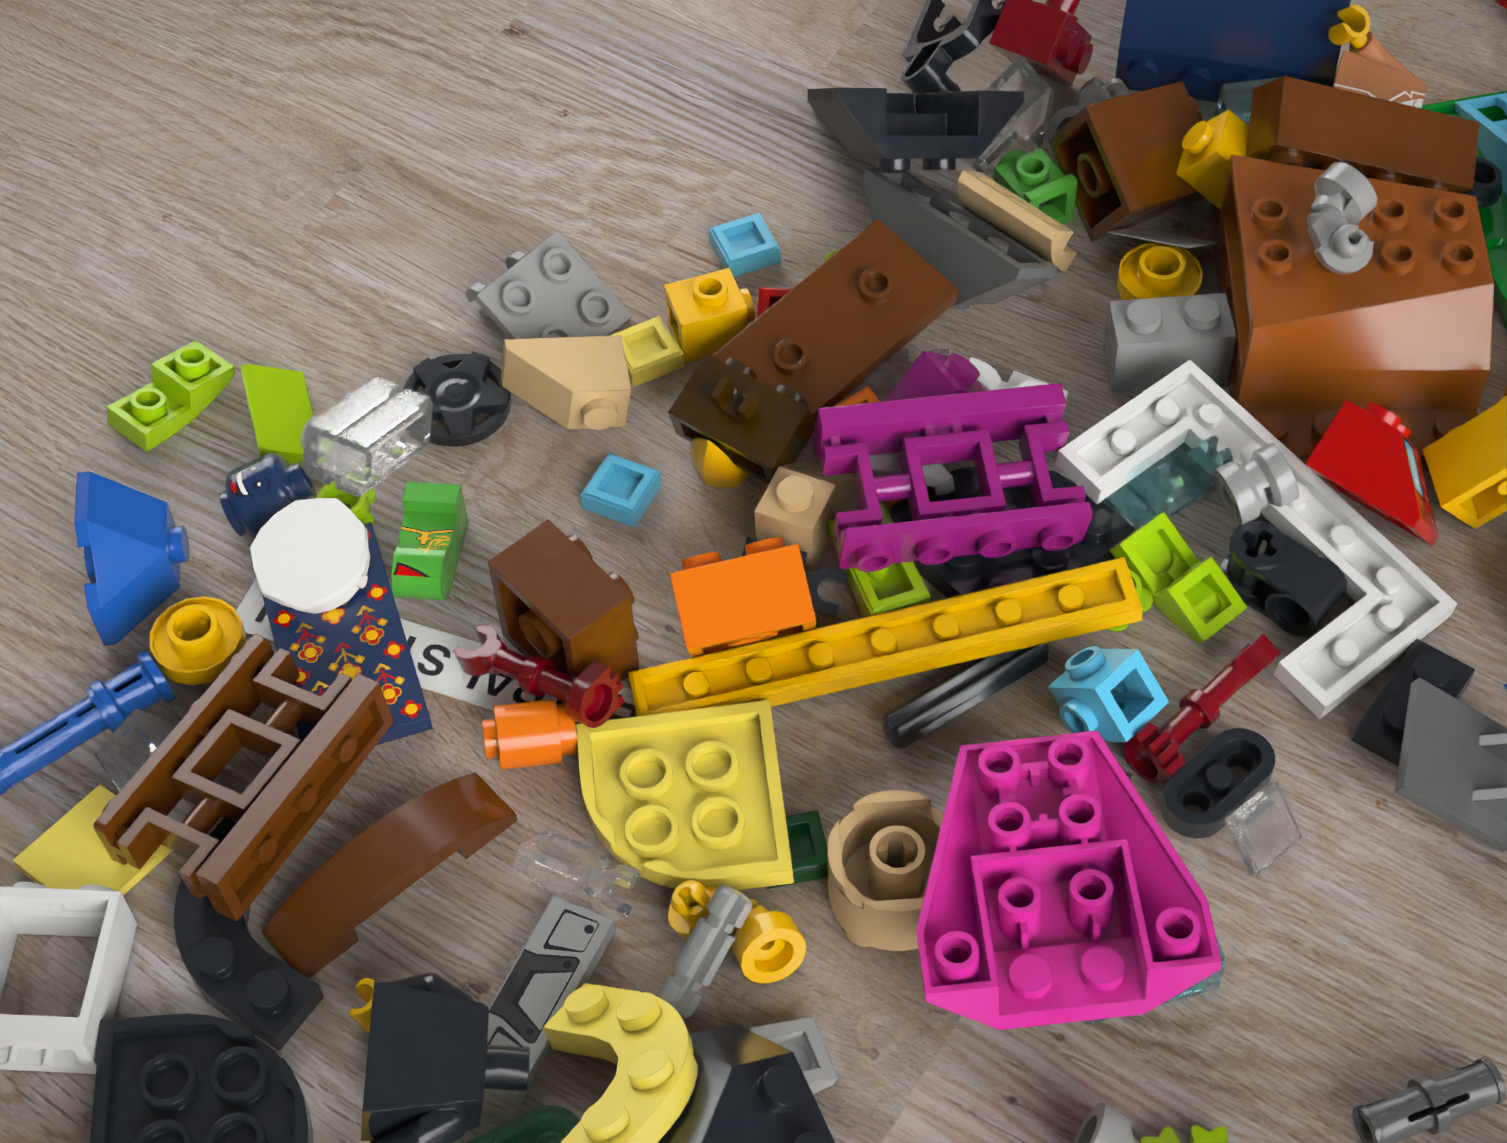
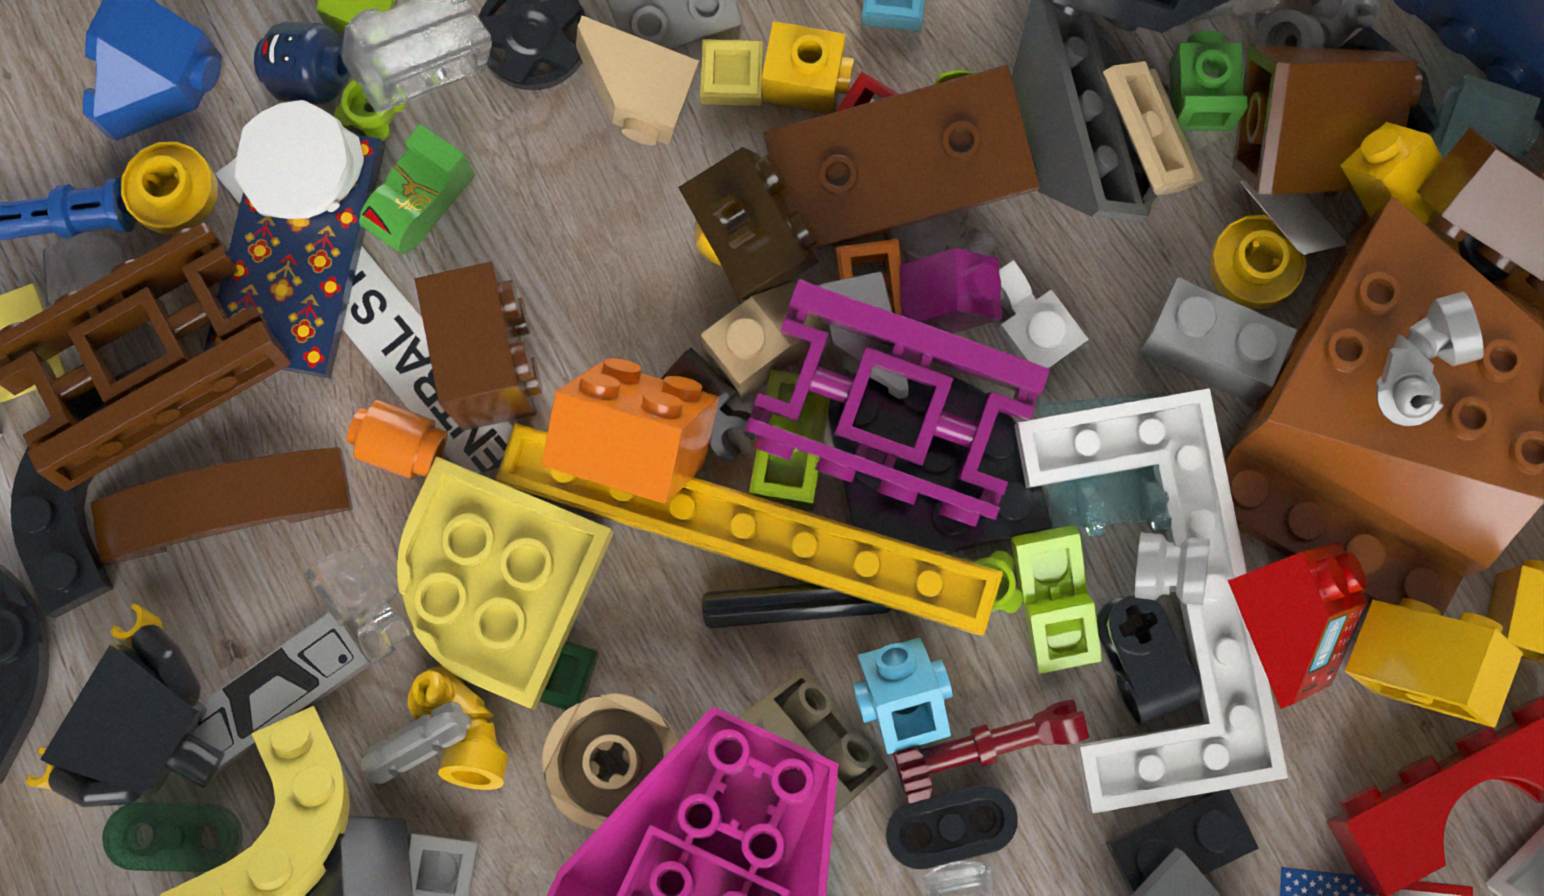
camera: 30 degrees right, 25 degrees up
(588, 698) = (450, 446): dark red piece -> none
(621, 490) = (622, 218): medium azure tile -> none

